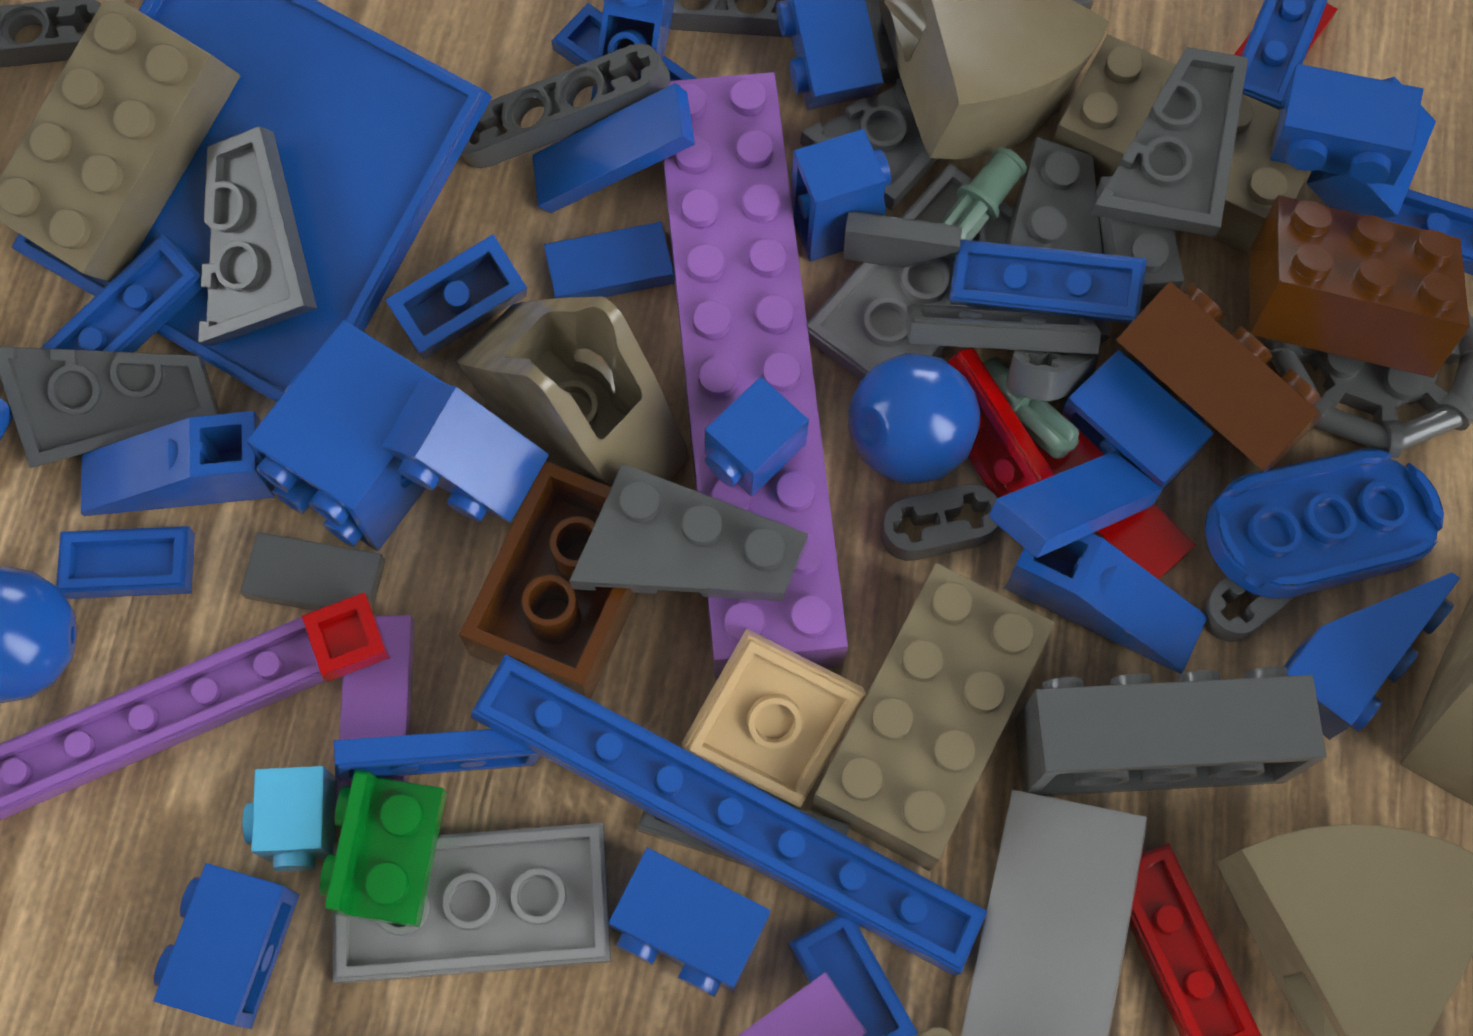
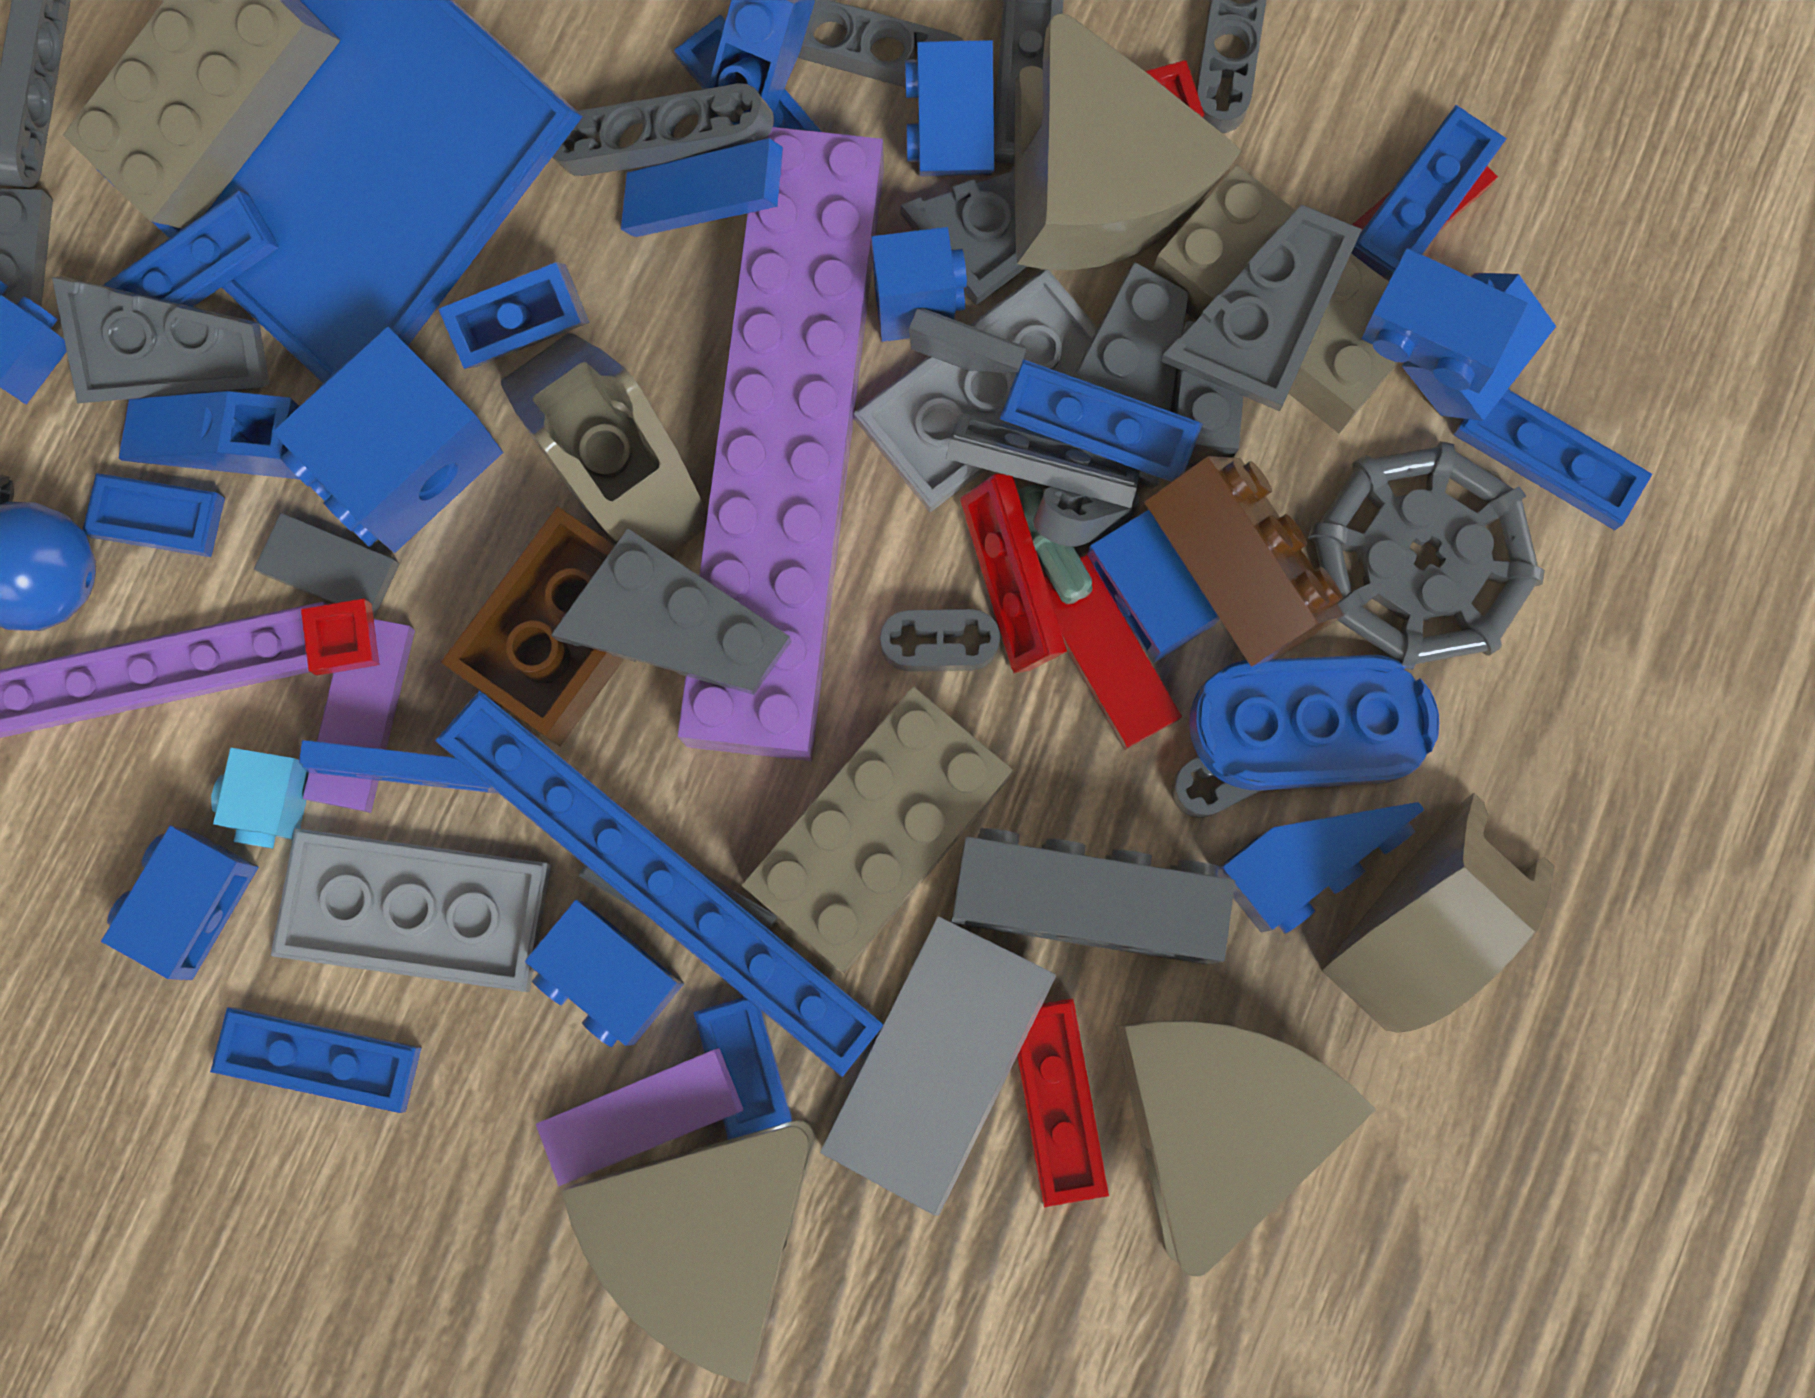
camera: 15 degrees right, 10 degrees up
(255, 246) = (324, 222): wing -> none
(383, 850) = (335, 846): green bracket -> none
(464, 450) = (477, 484): brick -> none
(610, 262) = (675, 304): blue tile -> none
(754, 437) = (759, 530): blue brick -> none
(773, 718) = (723, 802): tan tile -> none
(913, 418) = (931, 535): blue piece -> none
(985, 193) = (1063, 314): sand green axle -> none
(1074, 503) = (1061, 658): blue tile -> none
(1112, 597) = (1077, 748): blue slope -> none
(1357, 286) = (1409, 493): reddish brown brick -> none

